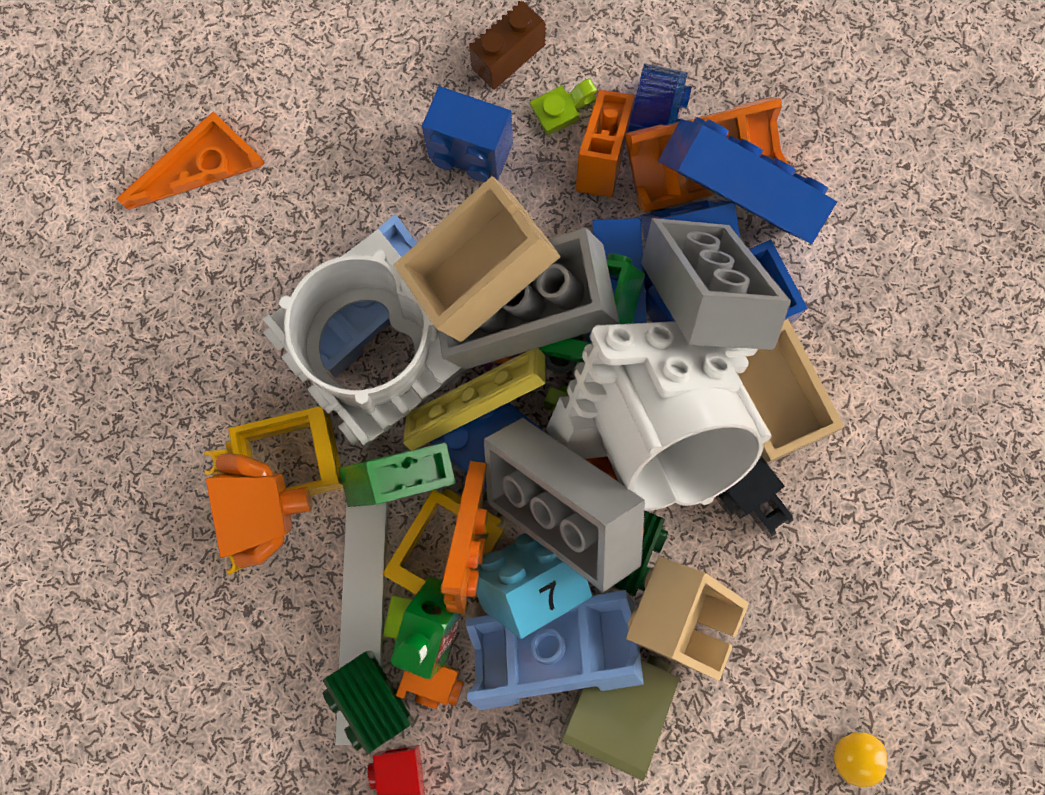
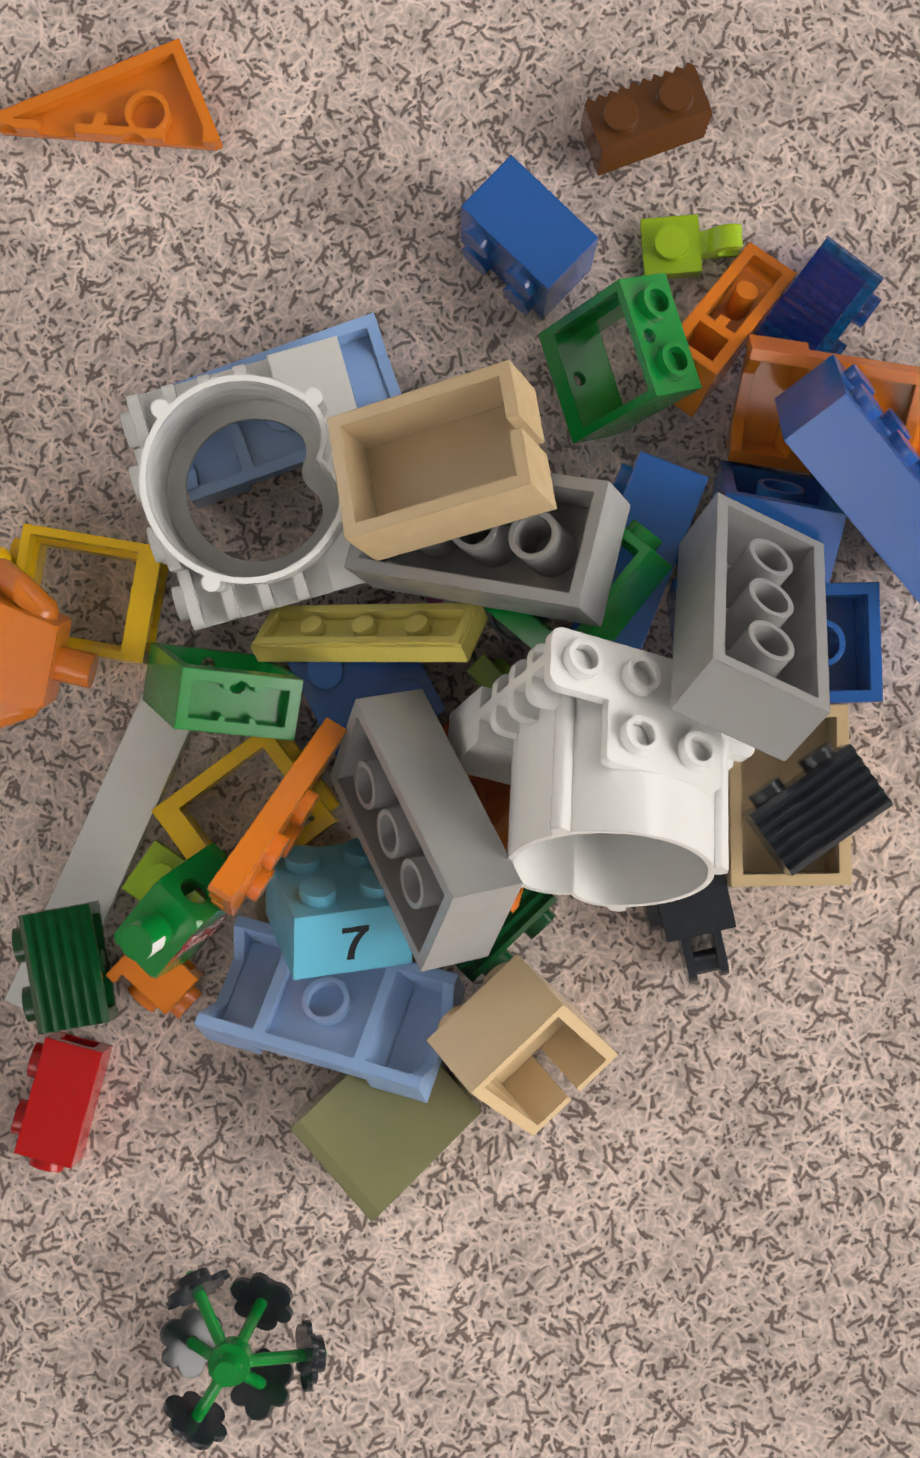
camera: 20 degrees right, 10 degrees up
(585, 161) = (576, 348): none -> green window
(800, 386) = (815, 807): none -> black brick
(860, 759) = (668, 1309): yellow piece -> none

